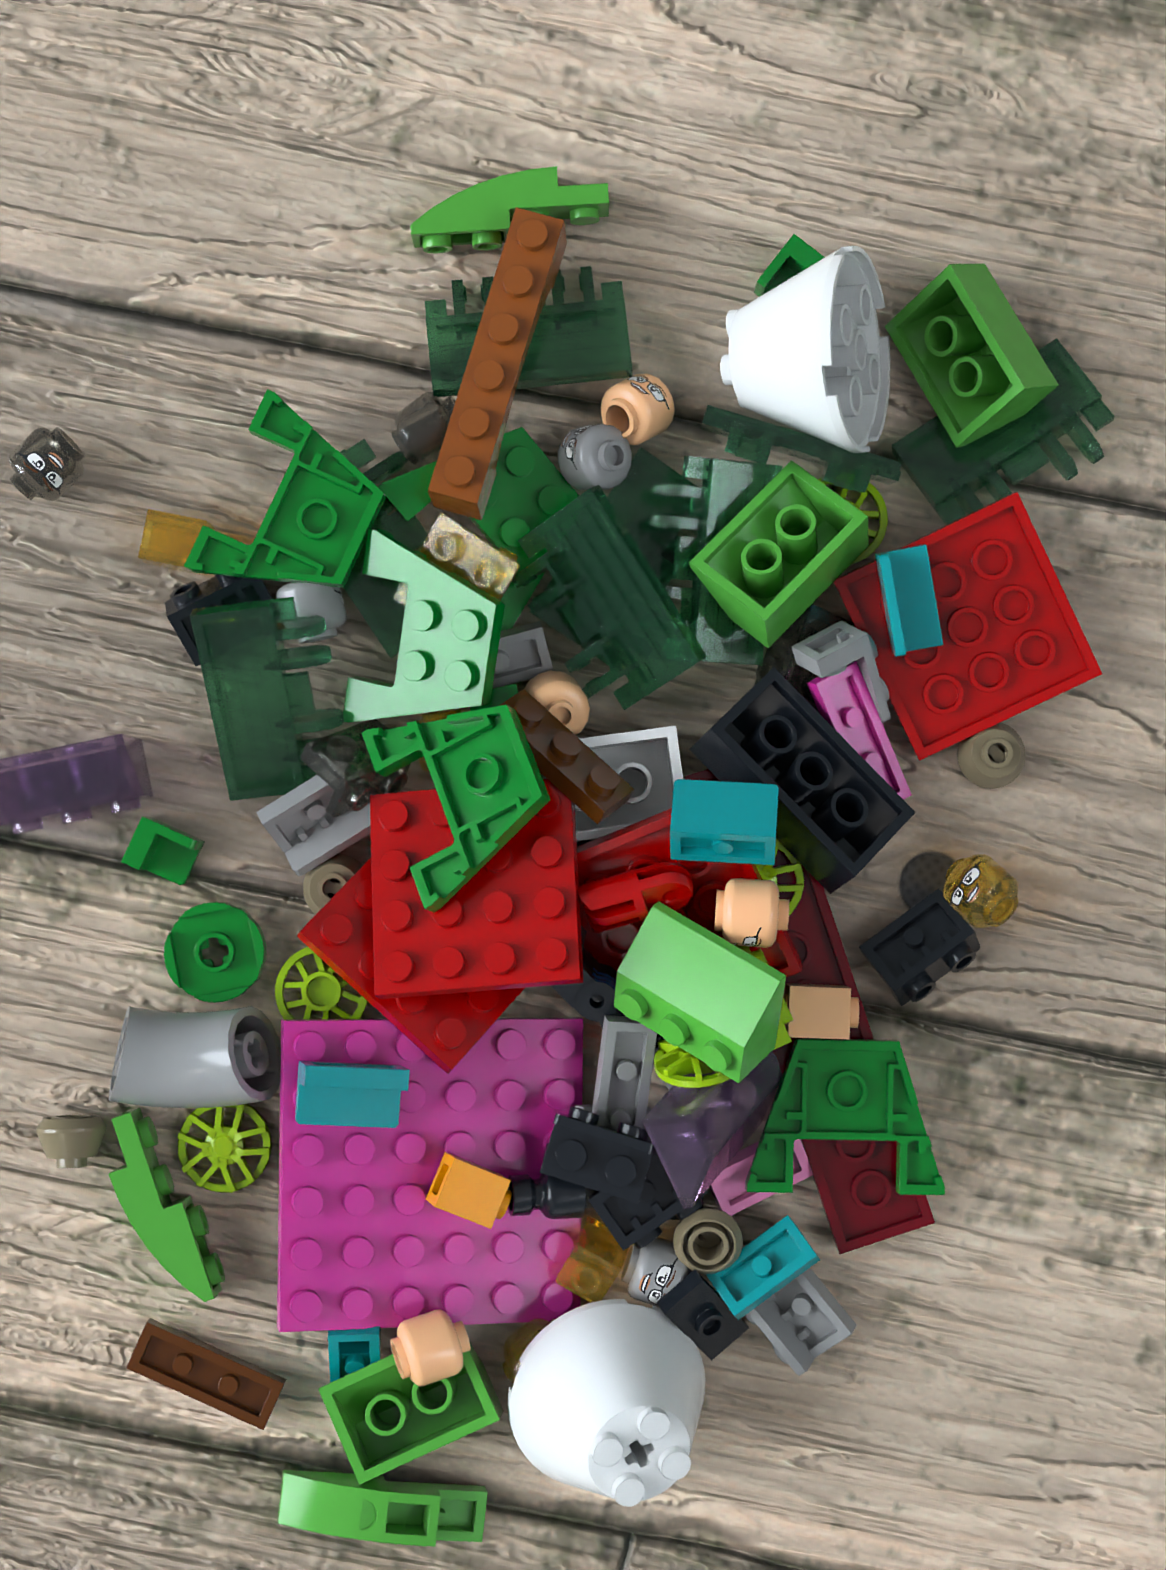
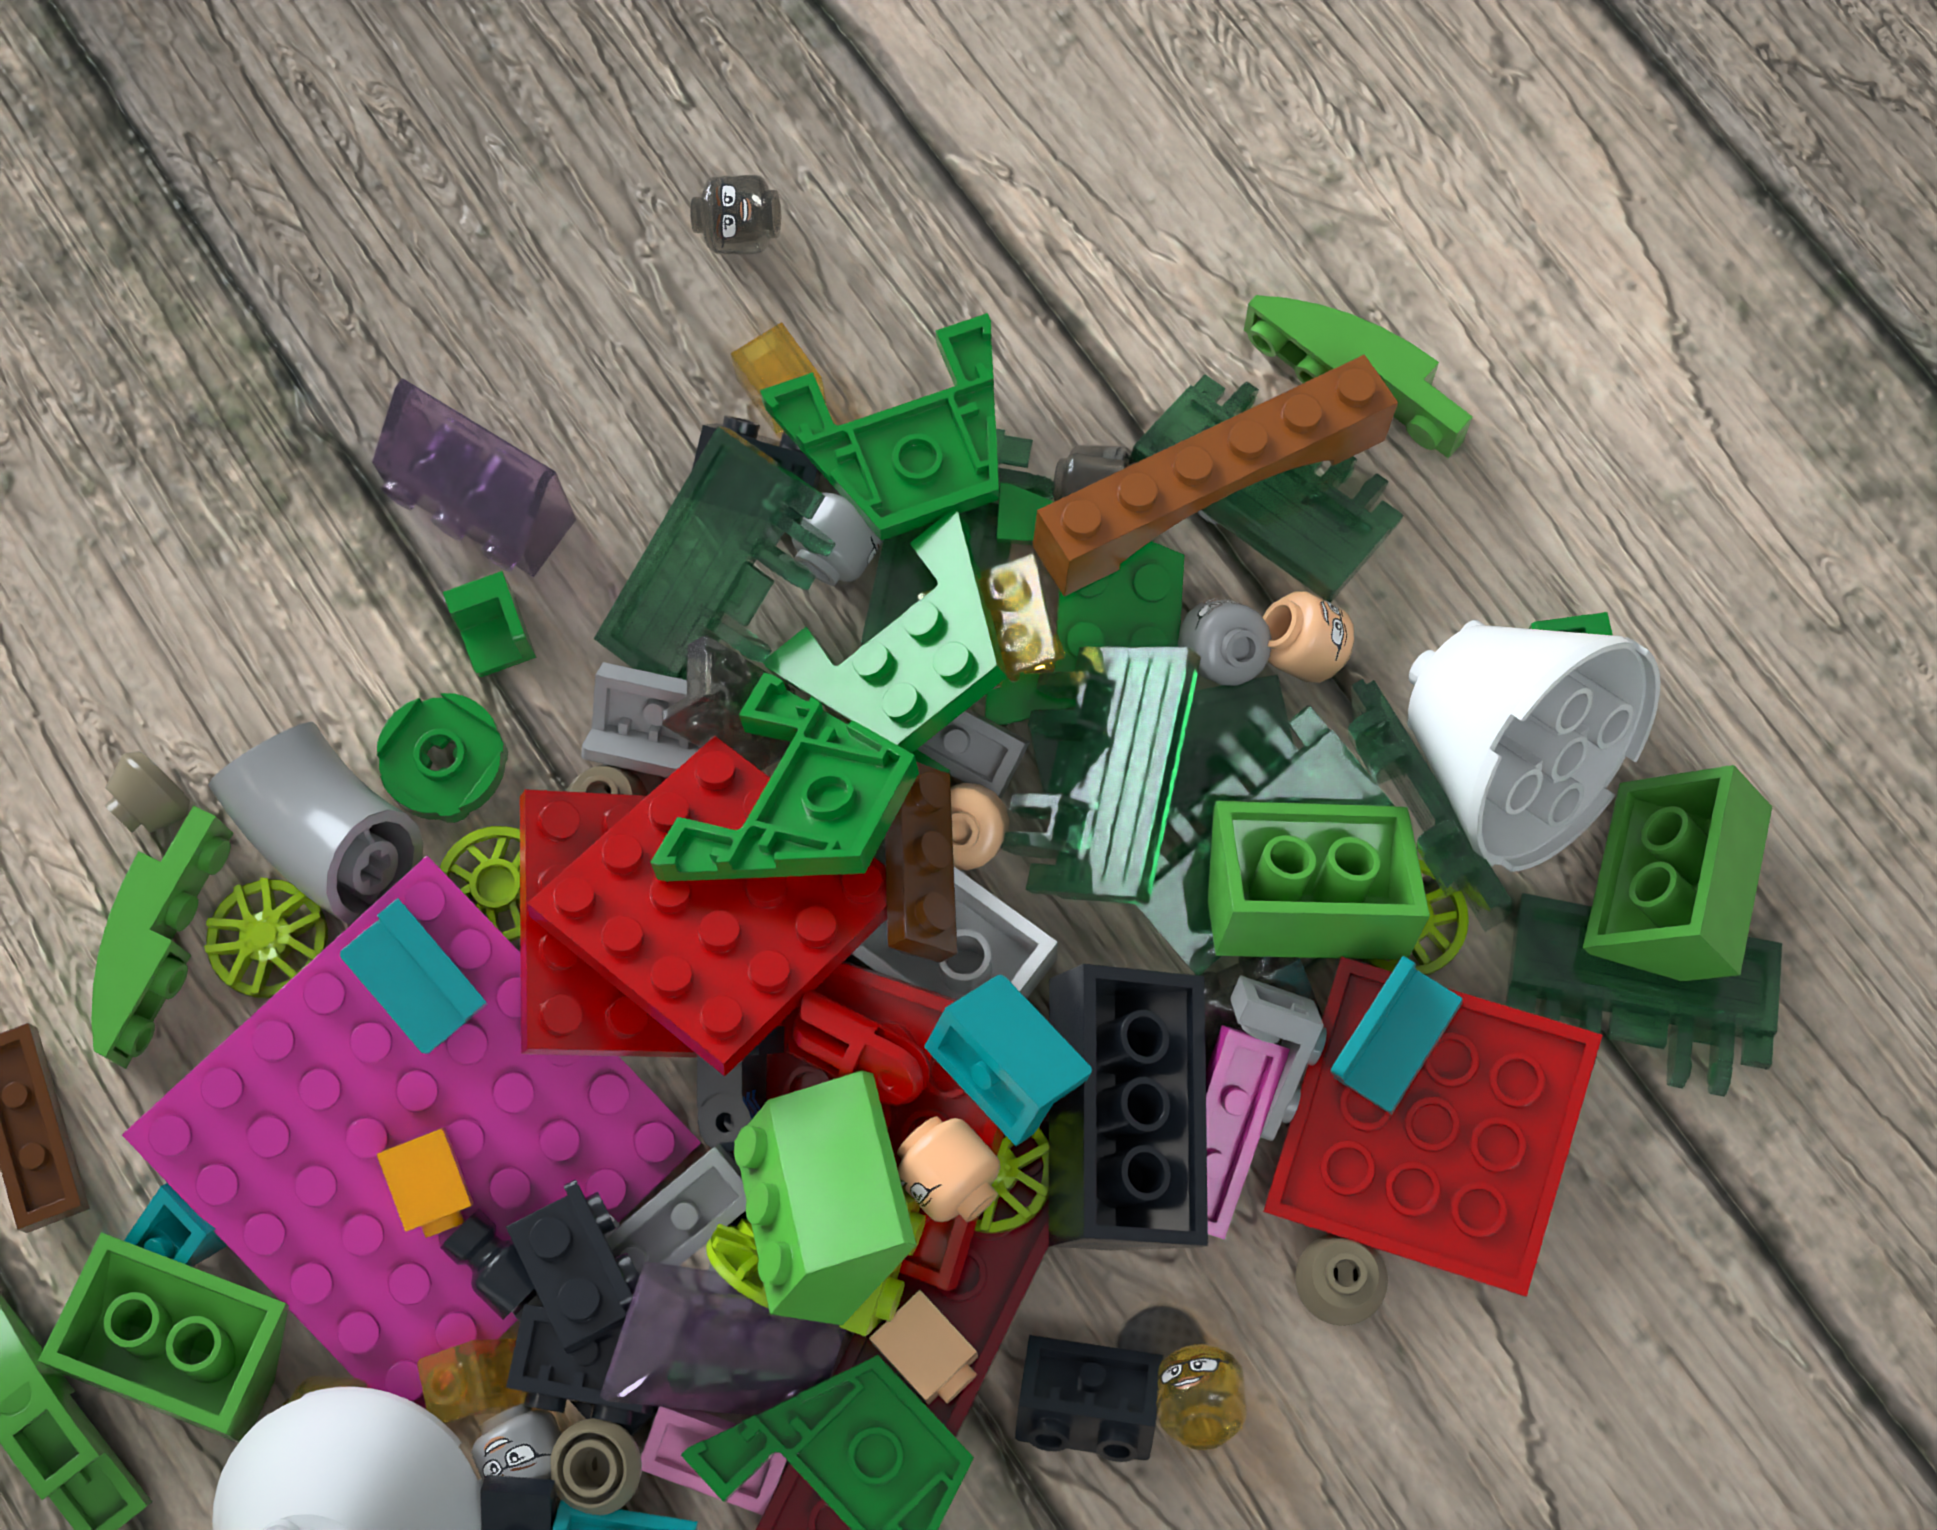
camera: 50 degrees right, 15 degrees down
(429, 1347) = (234, 1290): light nougat head -> none

